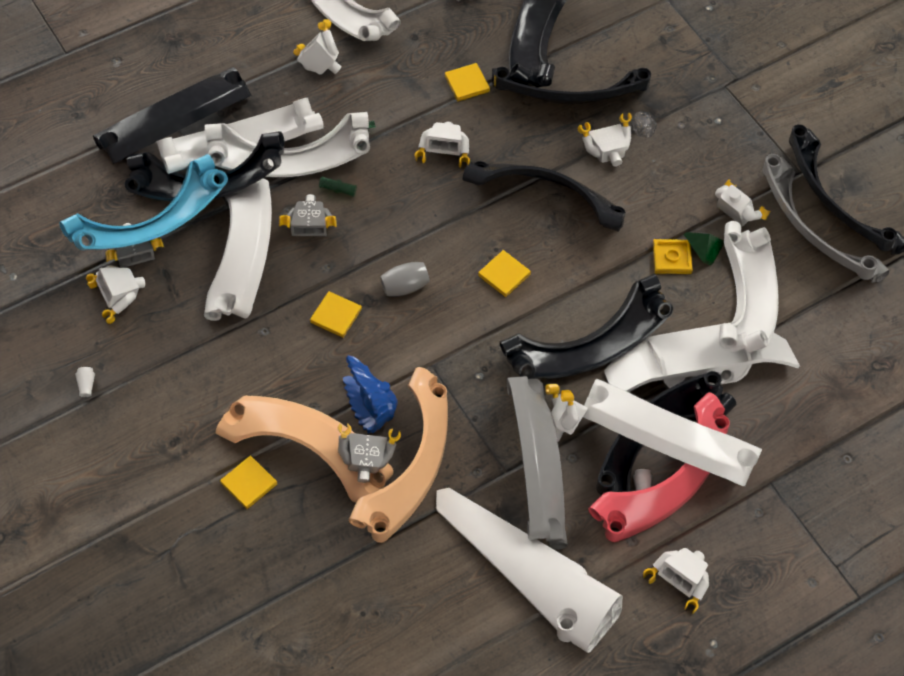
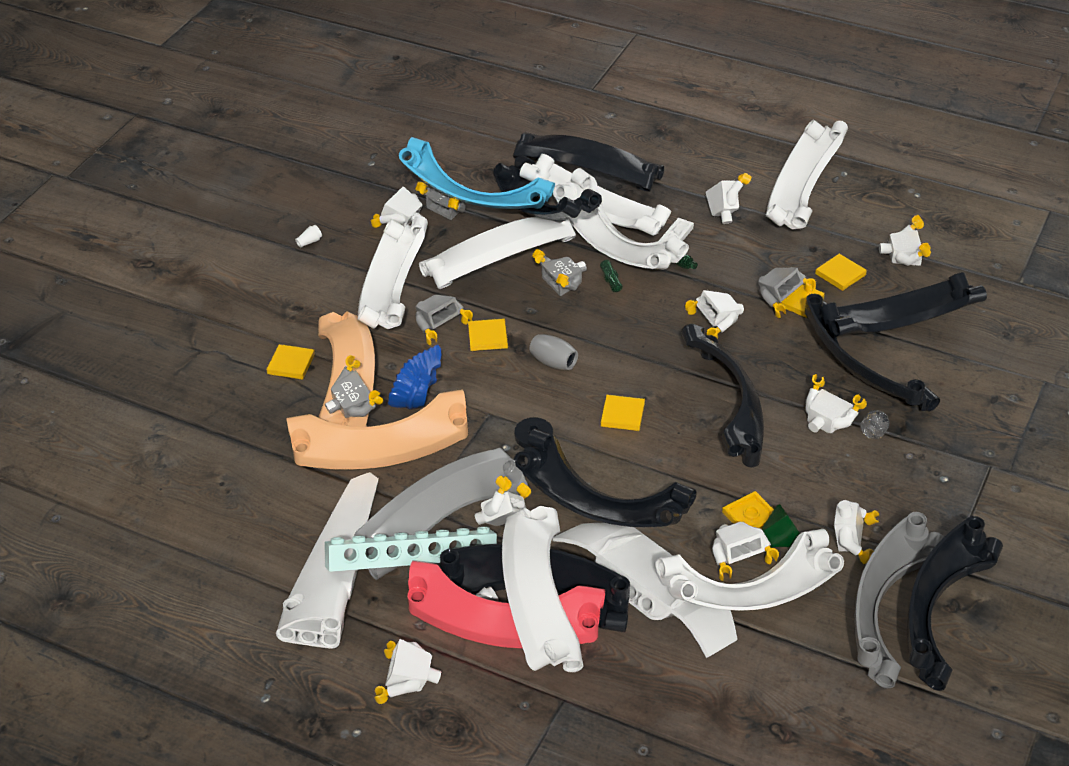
camera: 60 degrees right, 15 degrees down
(180, 332) = (387, 273): none -> white panel
(284, 336) = (437, 311): none -> light grey torso
(321, 105) = (679, 228): none -> white plate
(450, 84) = (780, 284): none -> light grey torso
(458, 37) = (841, 272): none -> yellow tile
(481, 355) = (525, 427): none -> black plate
(573, 505) = (400, 556): none -> light aqua brick
(703, 283) = (739, 542): none -> white torso

